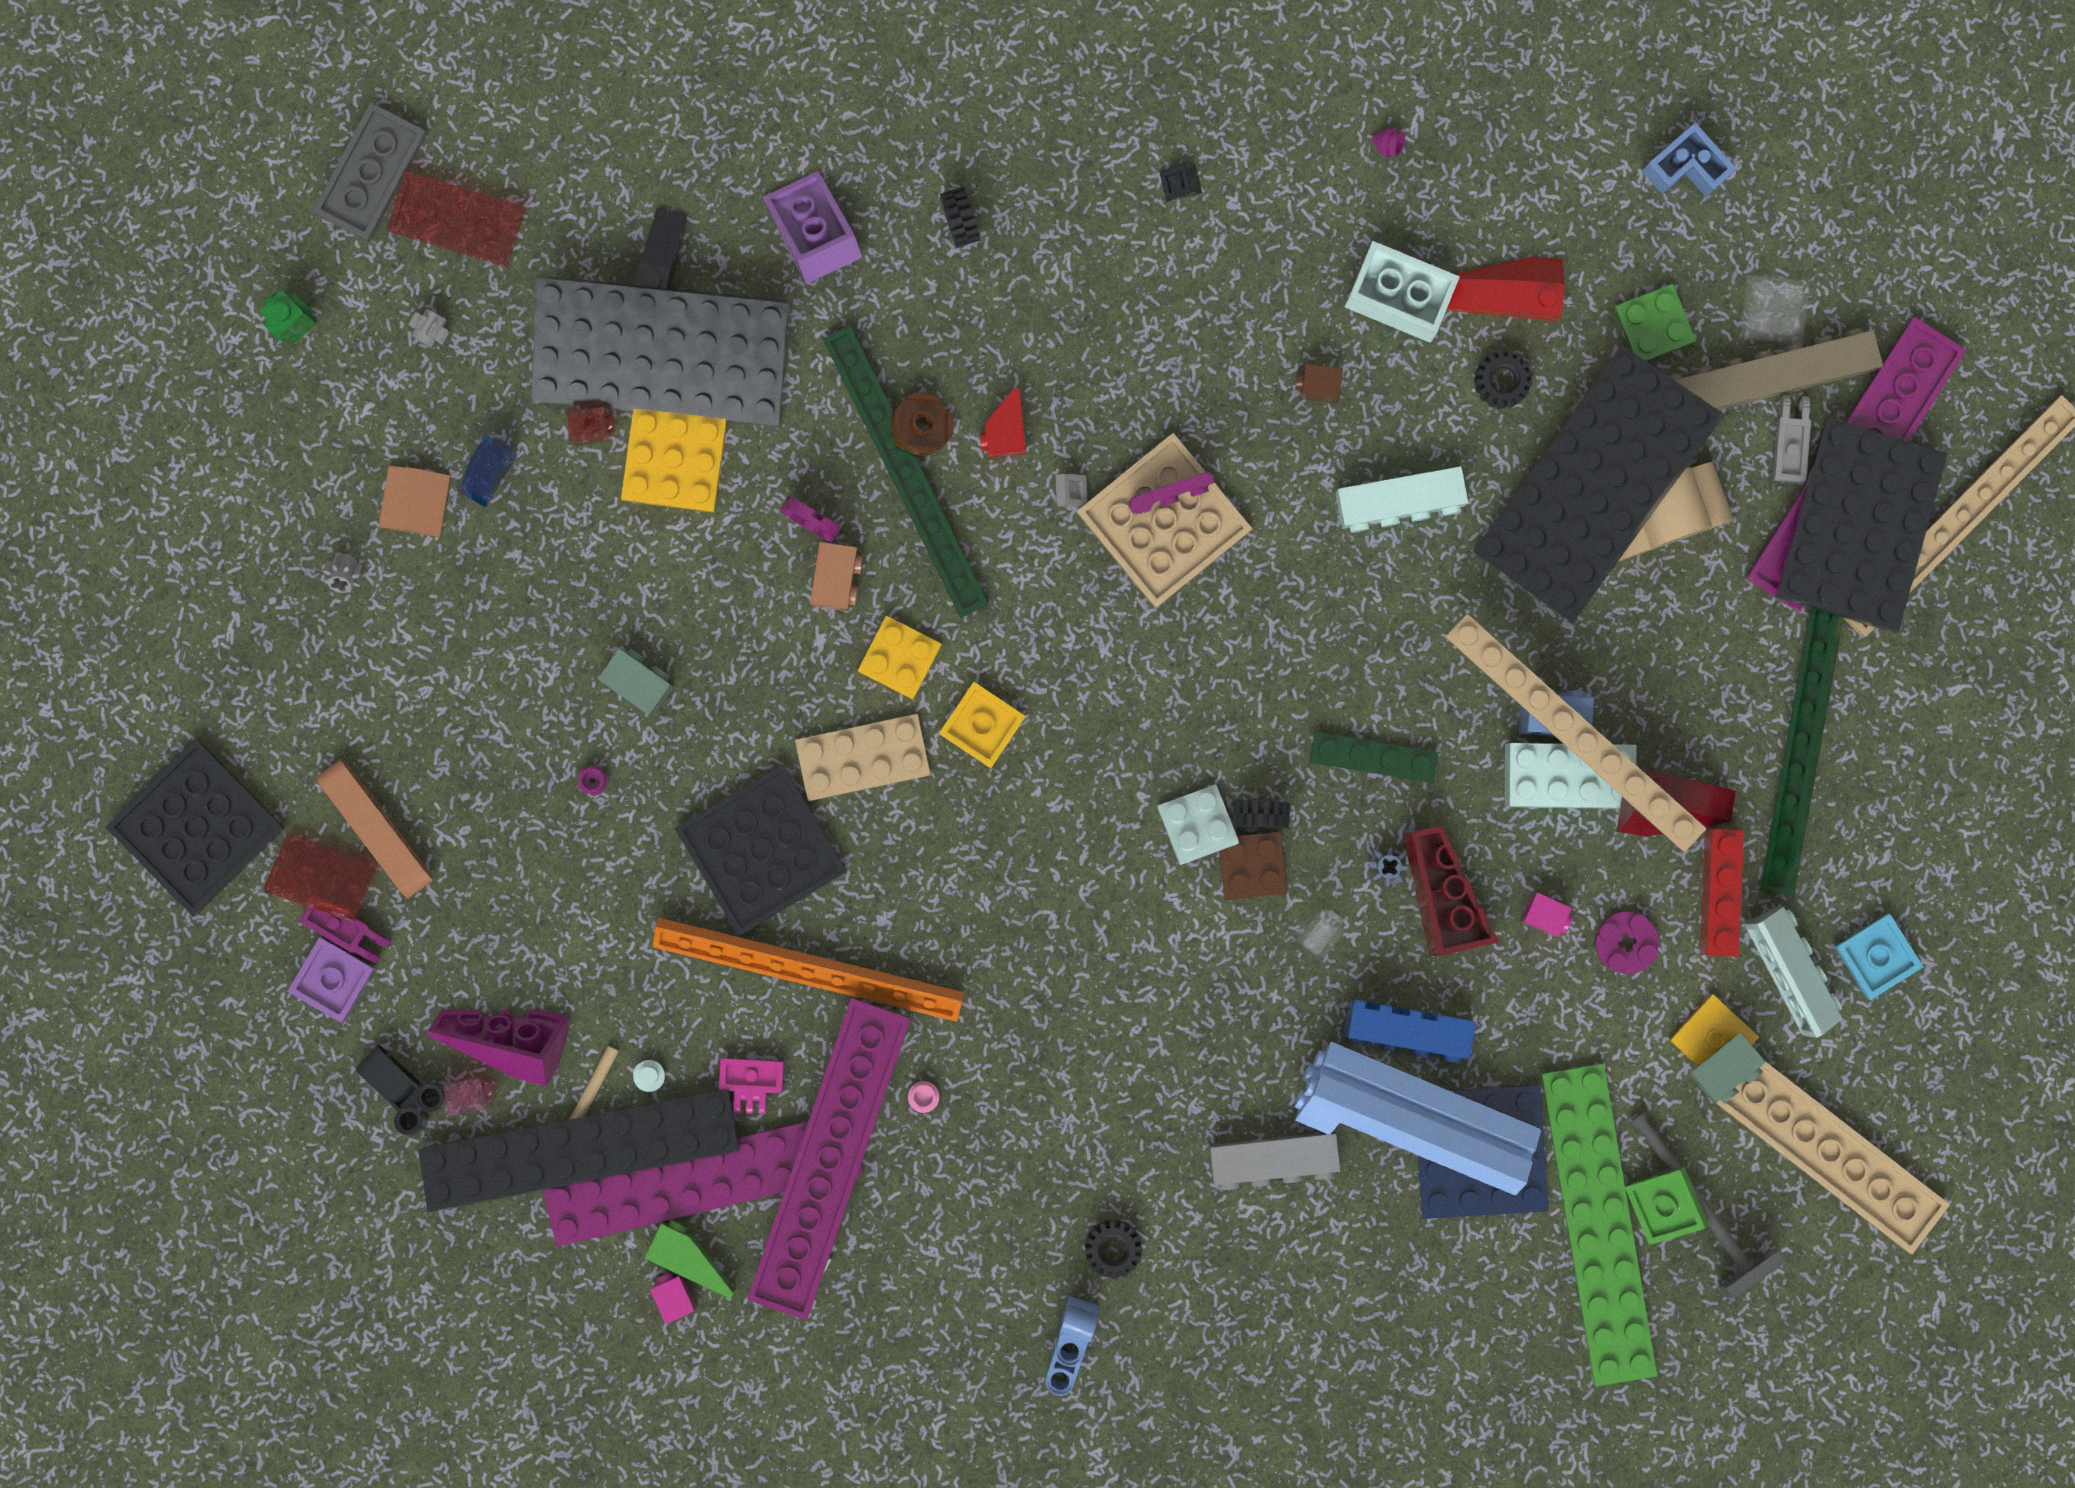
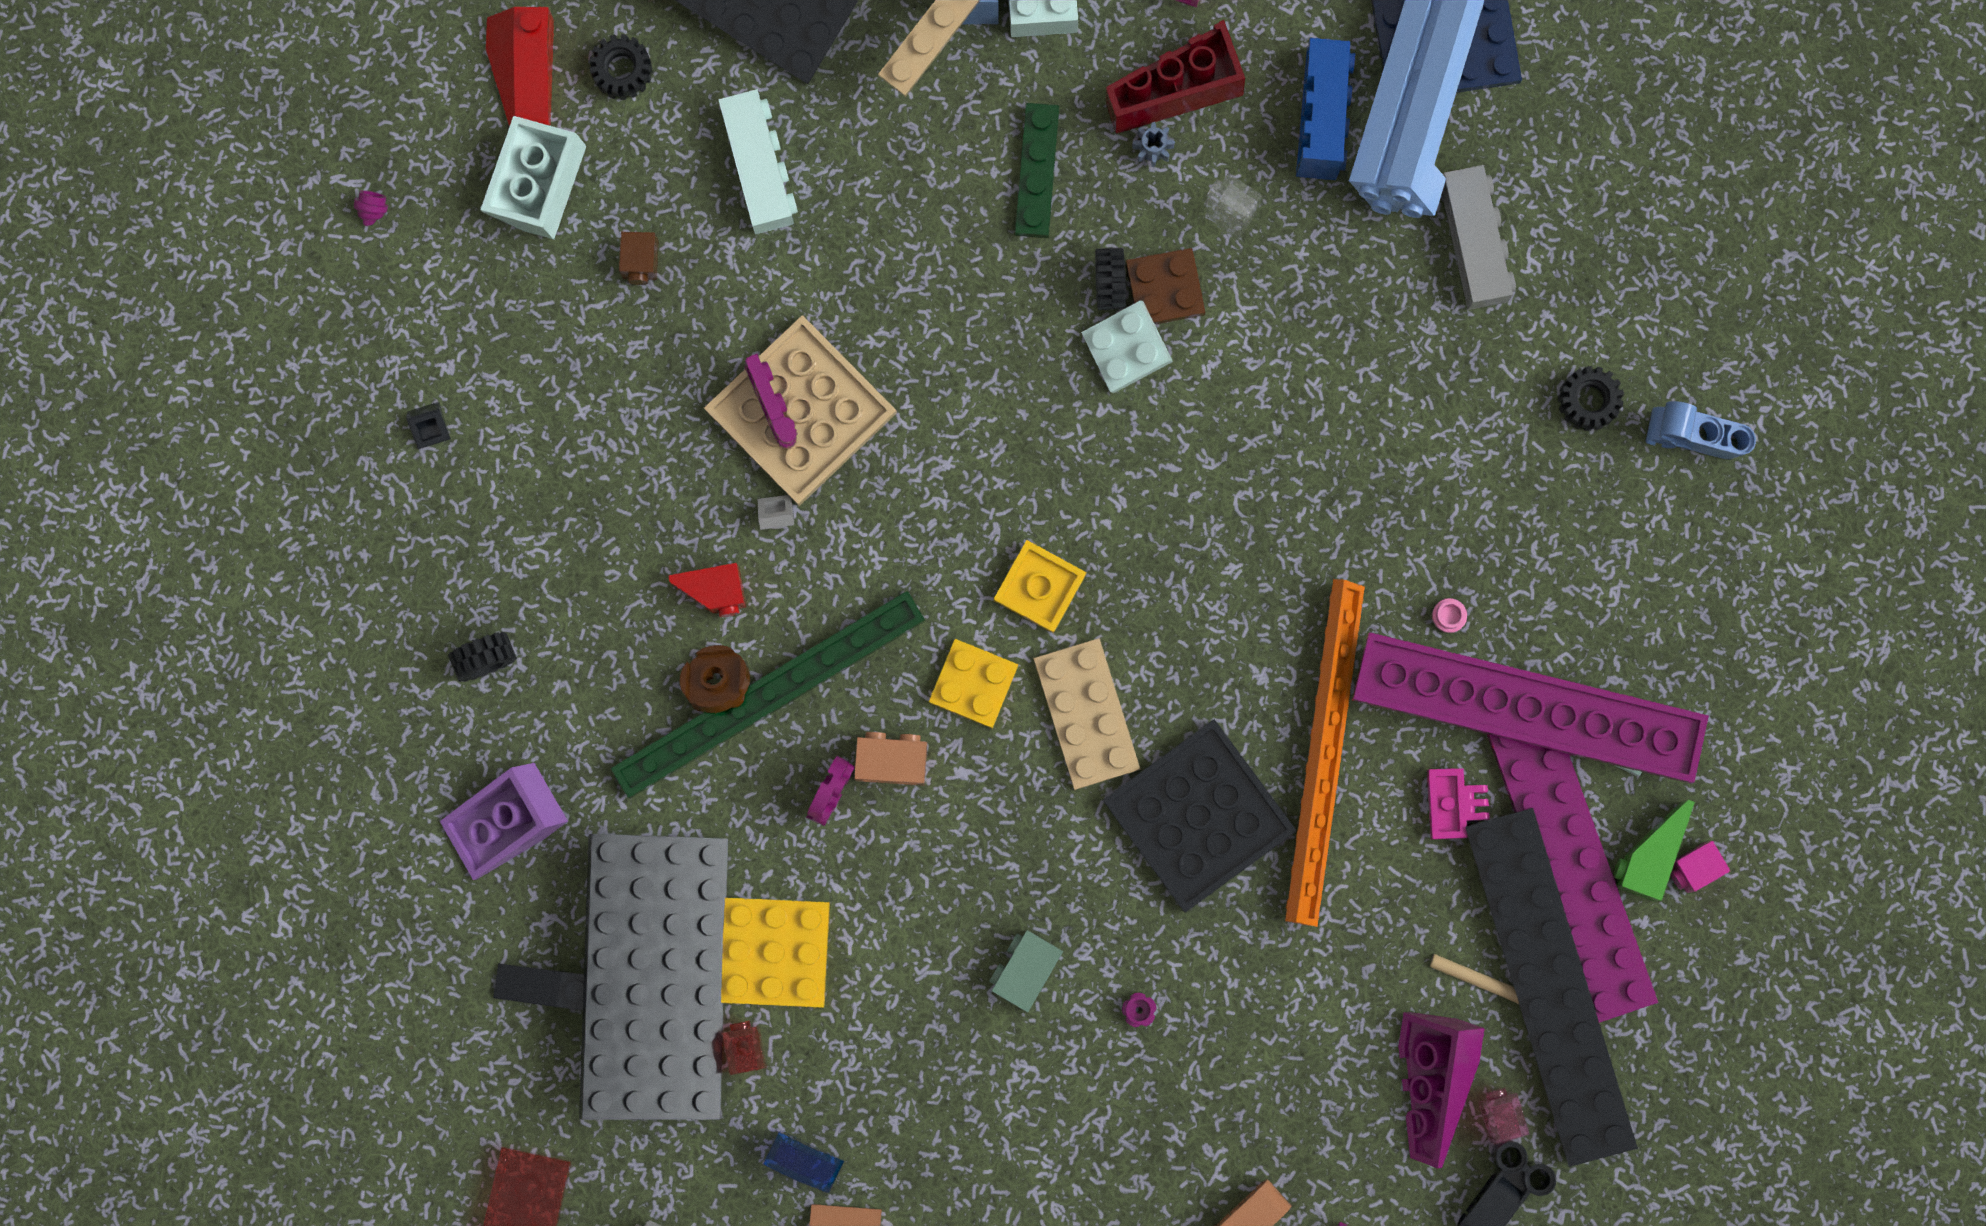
camera: 90 degrees left, 5 degrees down
(649, 1075) = (1459, 917): light aqua plate -> none

